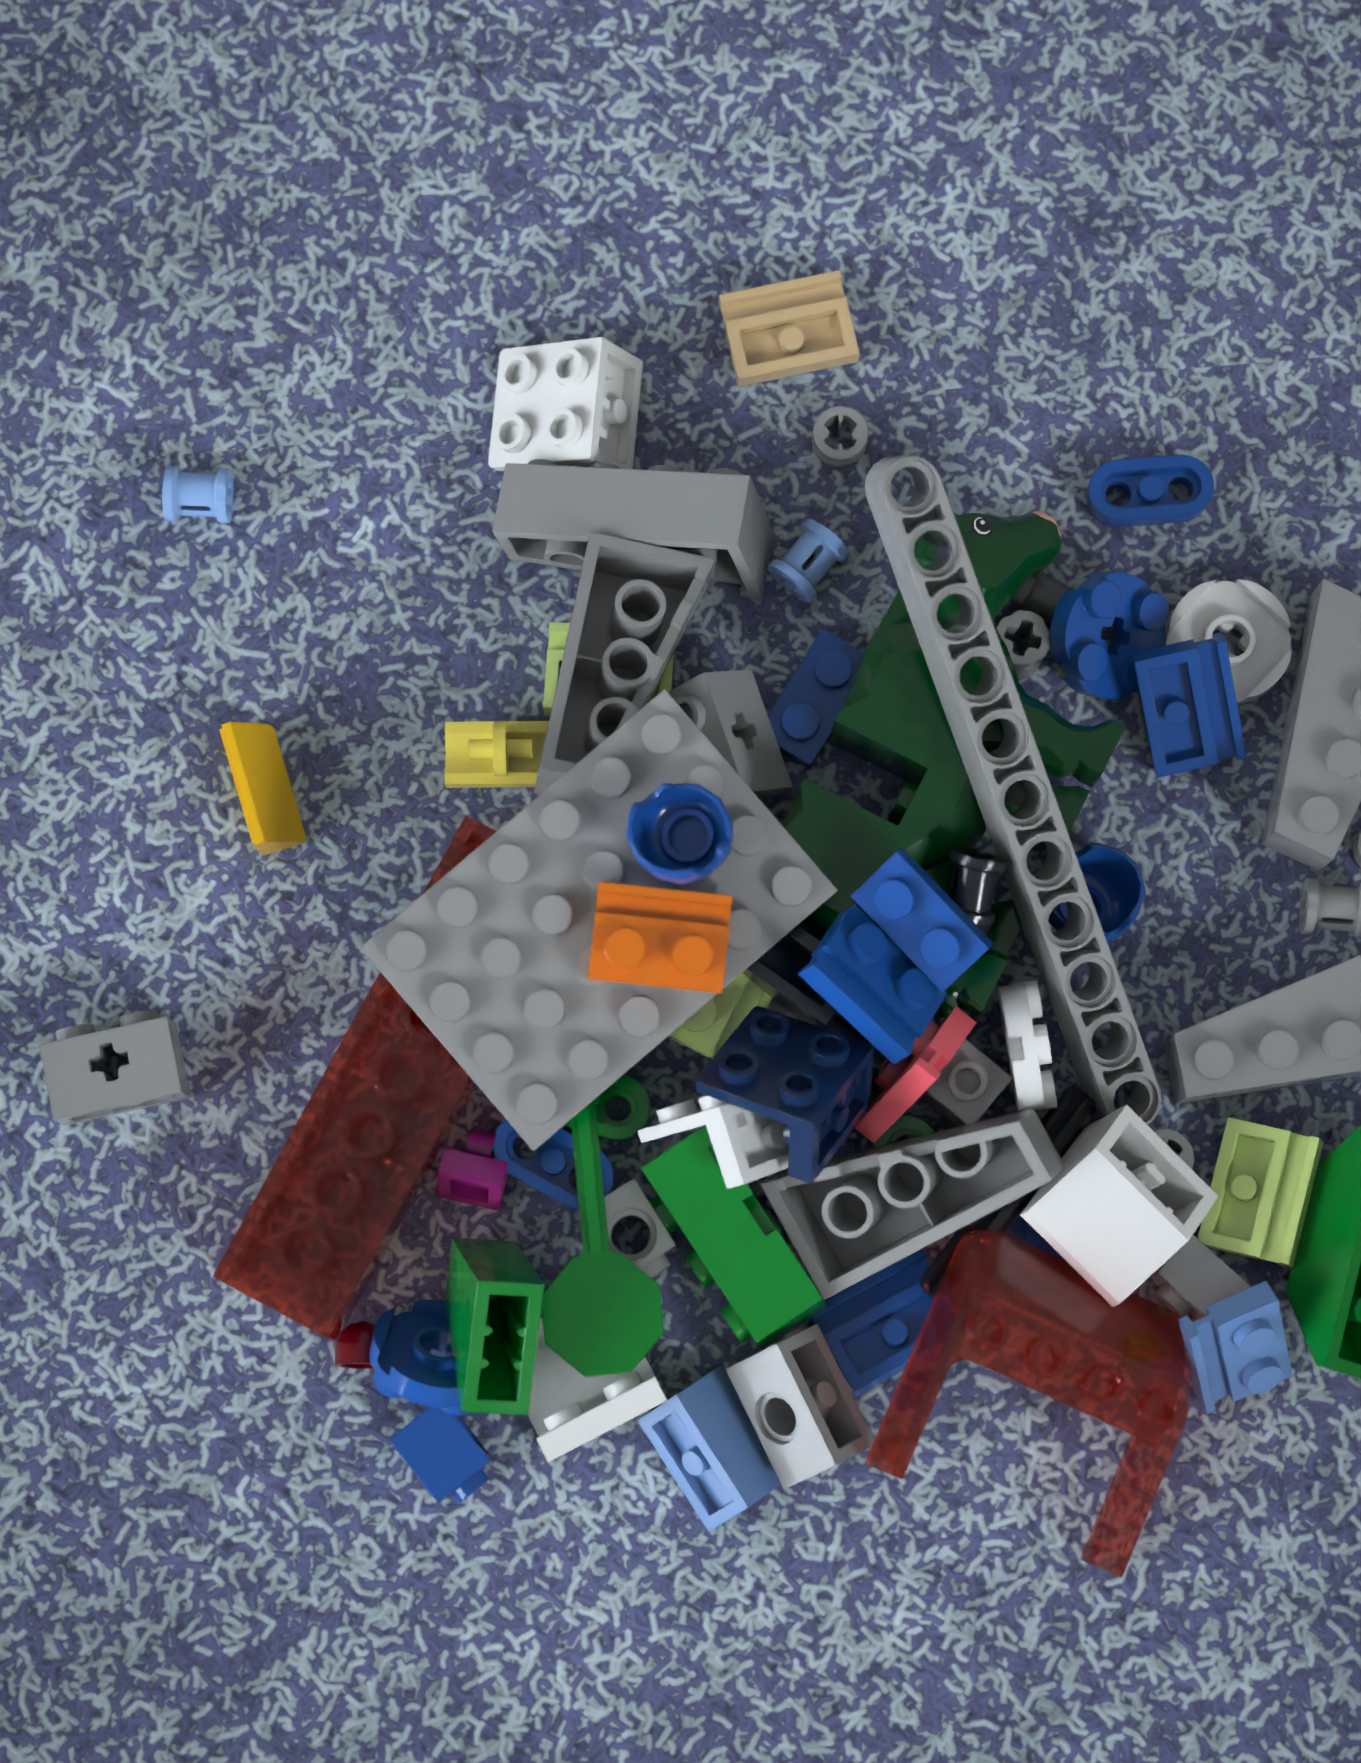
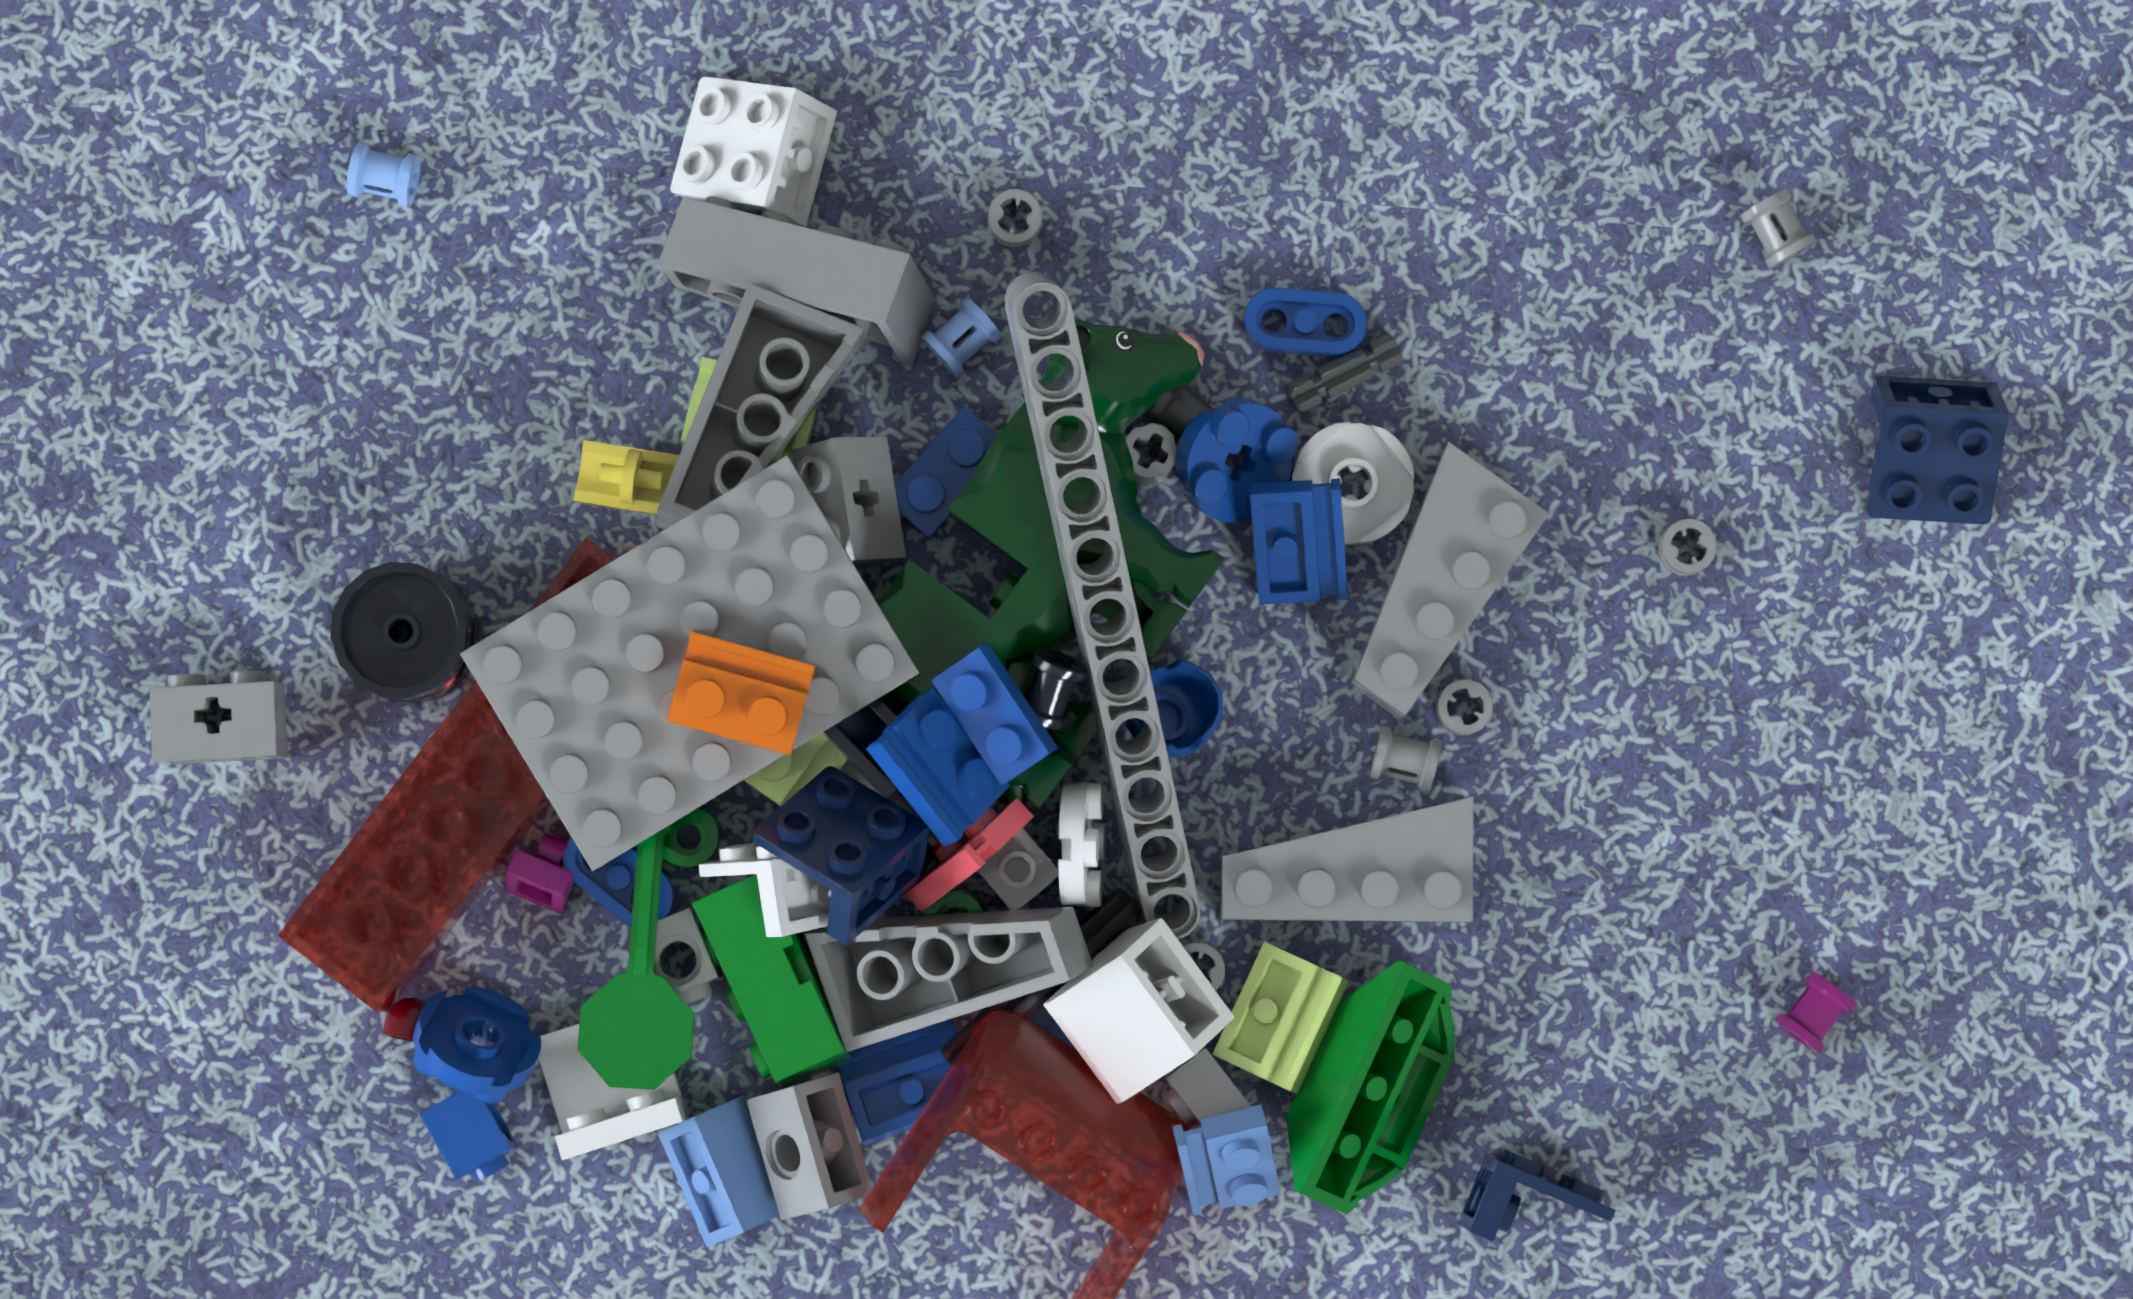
camera: 10 degrees right, 5 degrees up
(263, 786) = (401, 471): yellow slope -> none
(299, 984) = (368, 622): none -> black wheel
(492, 1324) = (531, 1023): green slope -> none
(680, 832) = (773, 599): blue hair -> none
(789, 328) = (983, 103): tan plate -> none
(1198, 535) = (1344, 373): none -> dark grey axle

